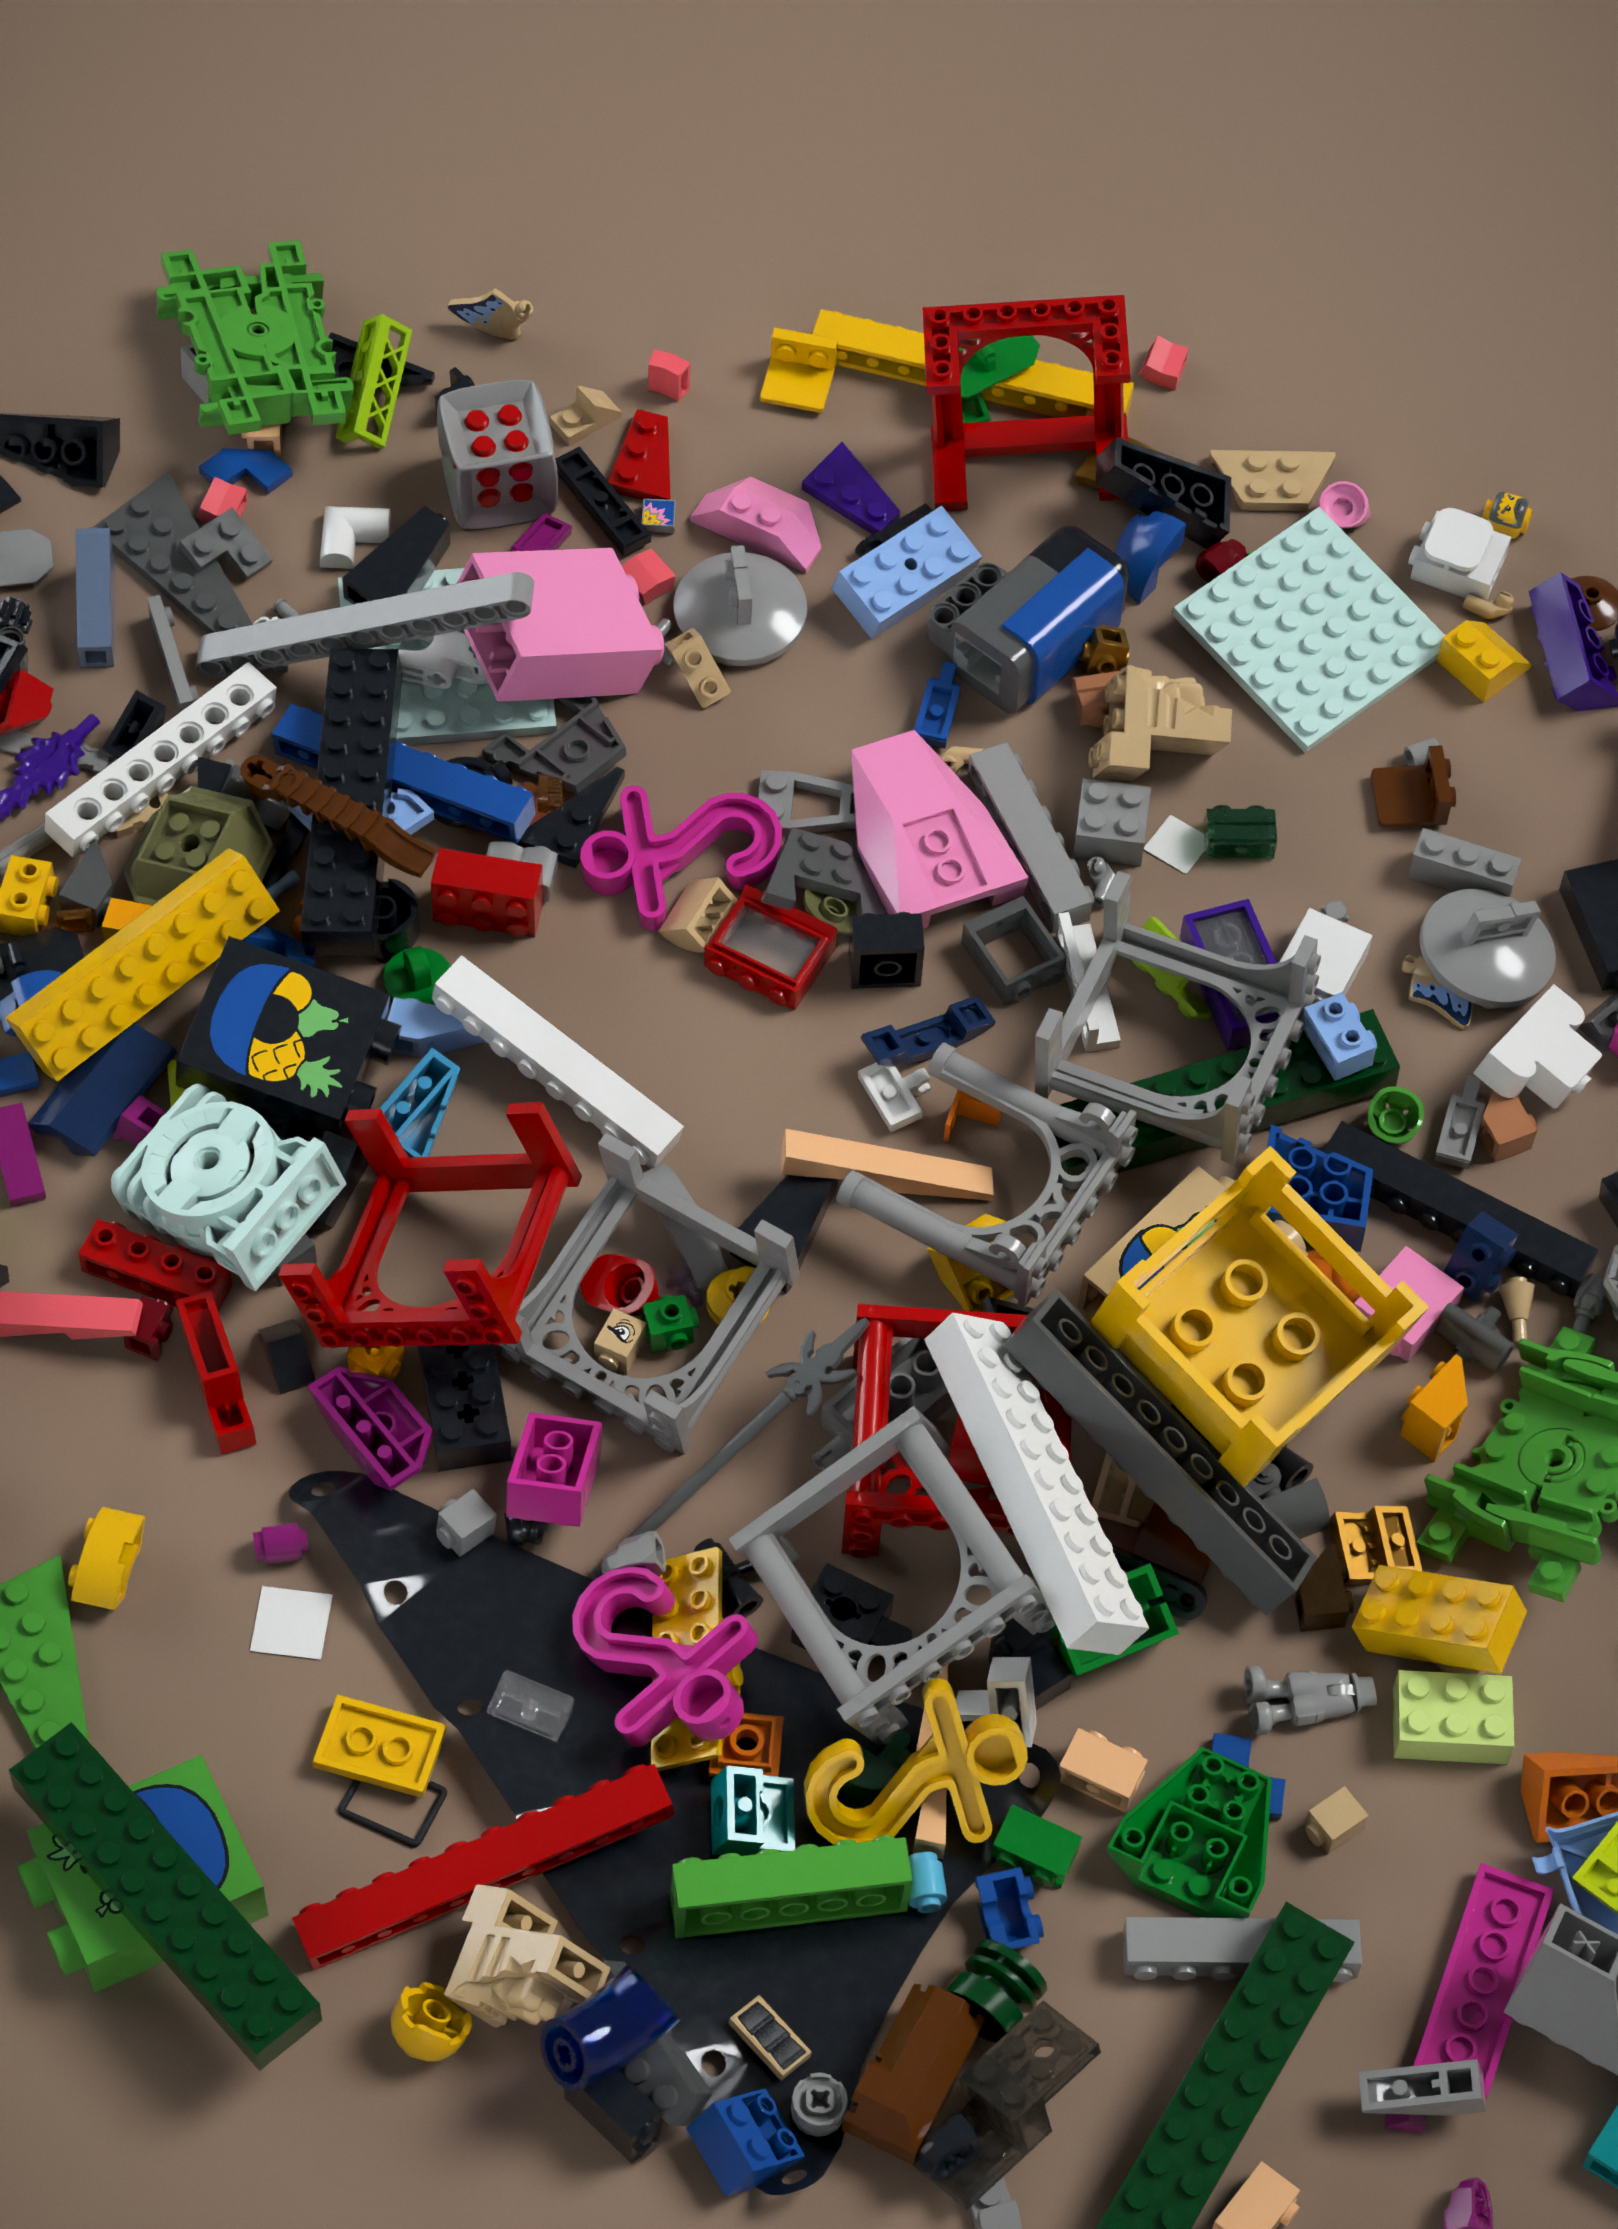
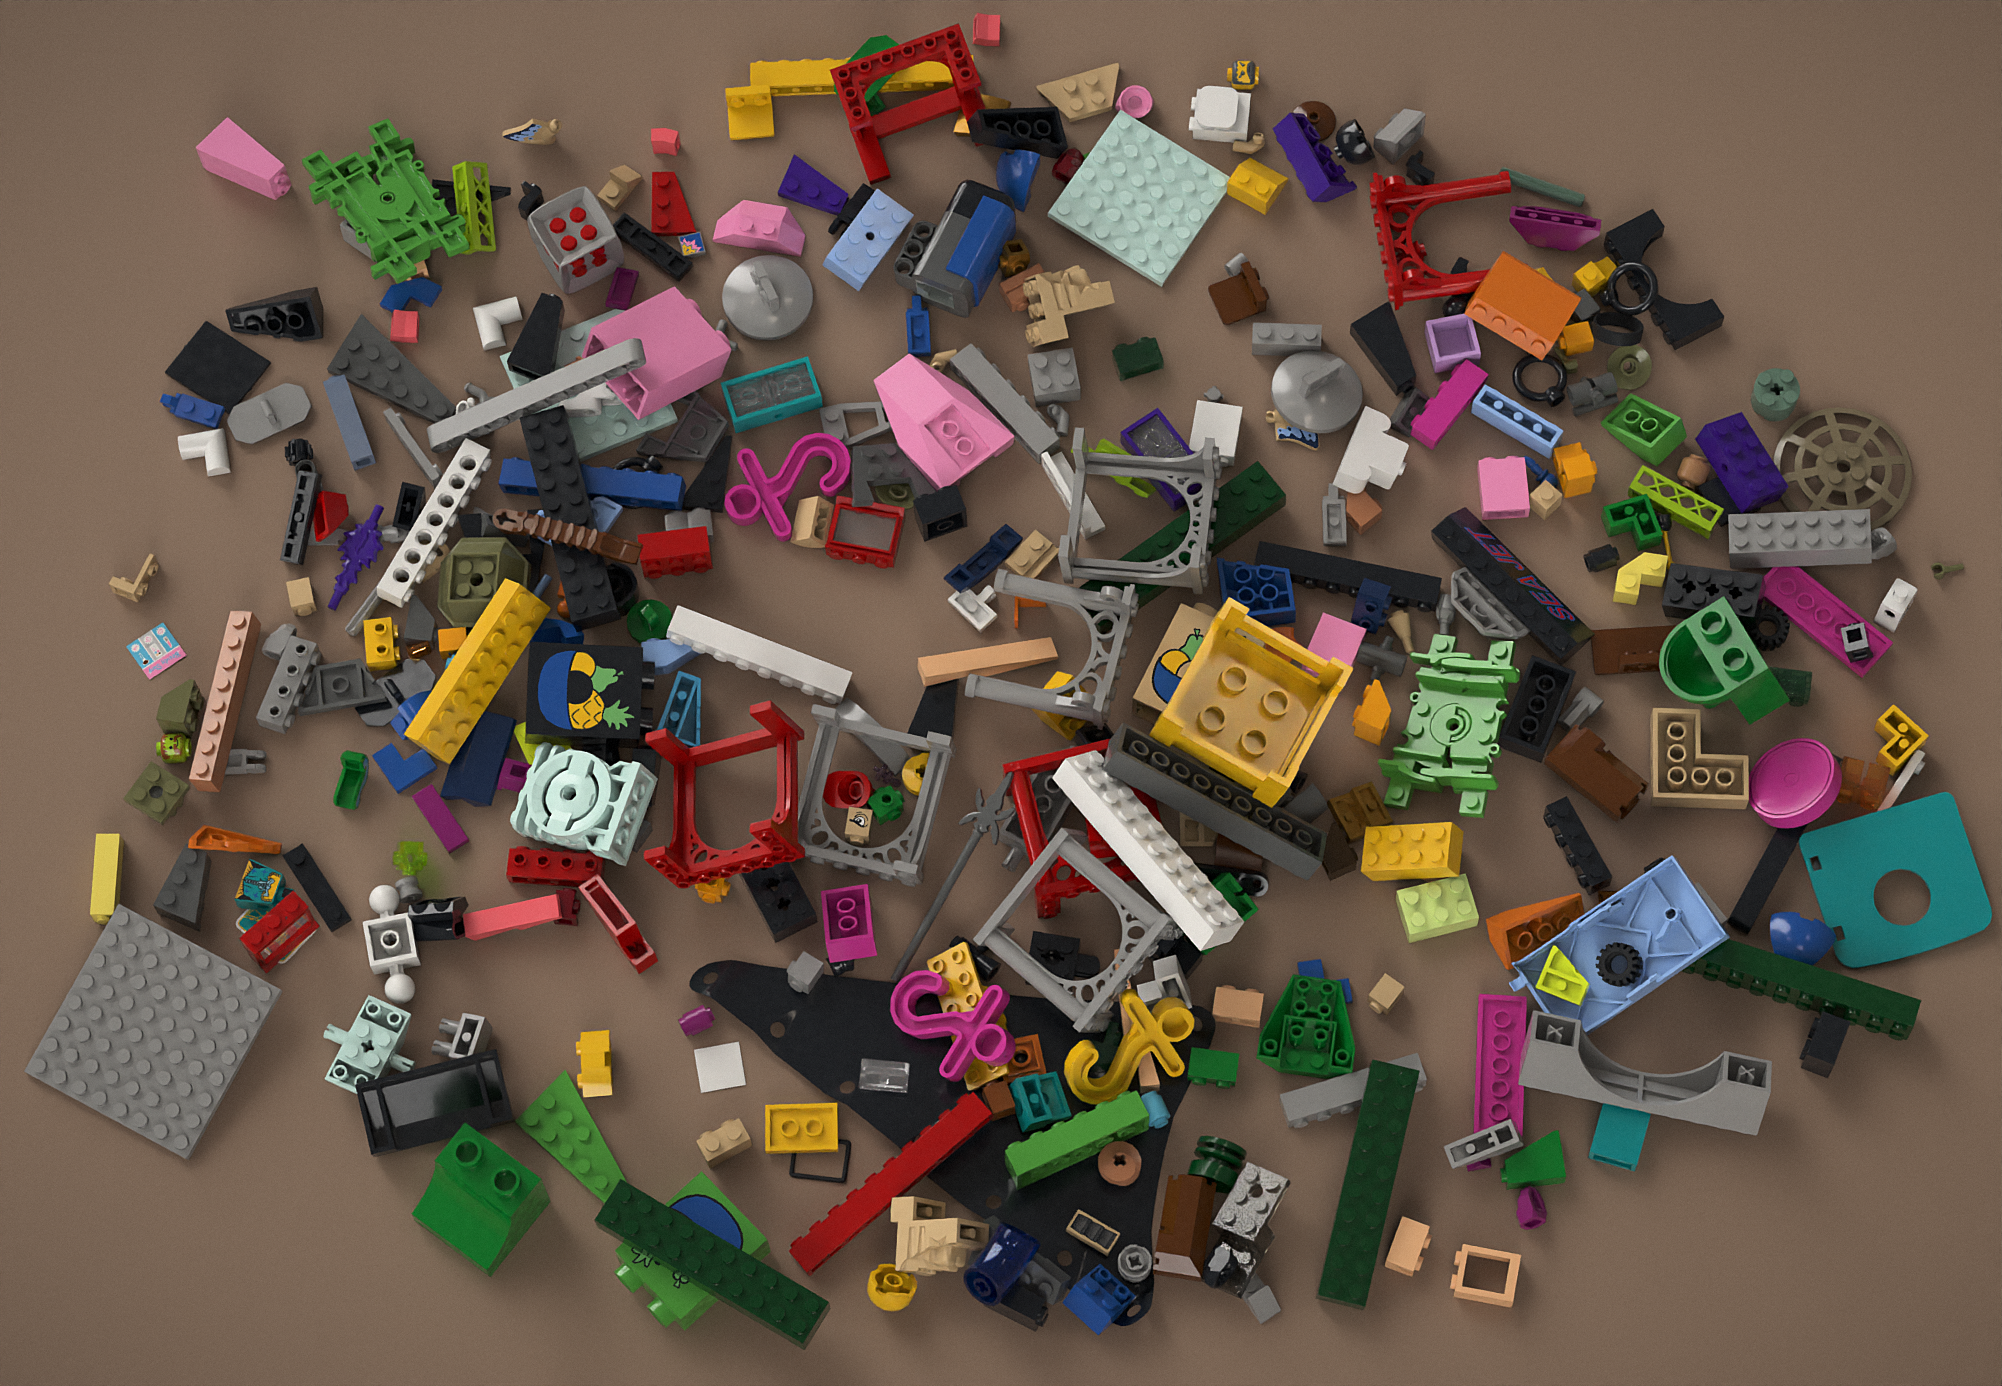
camera: 10 degrees left, 10 degrees up
(82, 238) = (241, 159): none -> bright pink slope
(227, 537) = (419, 350): dark grey plate -> none
(255, 1730) = (723, 1142): none -> tan brick
(287, 1355) = (657, 897): black slope -> none
(374, 1424) = (729, 929): magenta wedge -> none
(547, 792) = (688, 468): clear orange piece -> none
(638, 1551) = (917, 960): light grey rock -> none
(650, 575) = (700, 291): coral piece -> none
(691, 1794) = (998, 1099): none -> dark orange brick
(698, 667) = (754, 348): tan bracket -> none
(700, 730) = (771, 394): none -> brick
(840, 1962) = (1119, 1152): none -> nougat piece
(1001, 922) = (1004, 469): dark grey window -> none
(1004, 1049) = (1032, 556): none -> tan plate
(1006, 1909) = (1207, 1111): blue cylinder -> none
(1177, 844) = (1099, 377): white sticker -> none
(1310, 1695) = (1348, 920): light grey piece -> none
(1339, 1036) = (1243, 488): light blue brick -> none
(1392, 1122) = (1290, 528): bright green helmet -> none
(1496, 2148) = (1536, 1164): none -> green slope

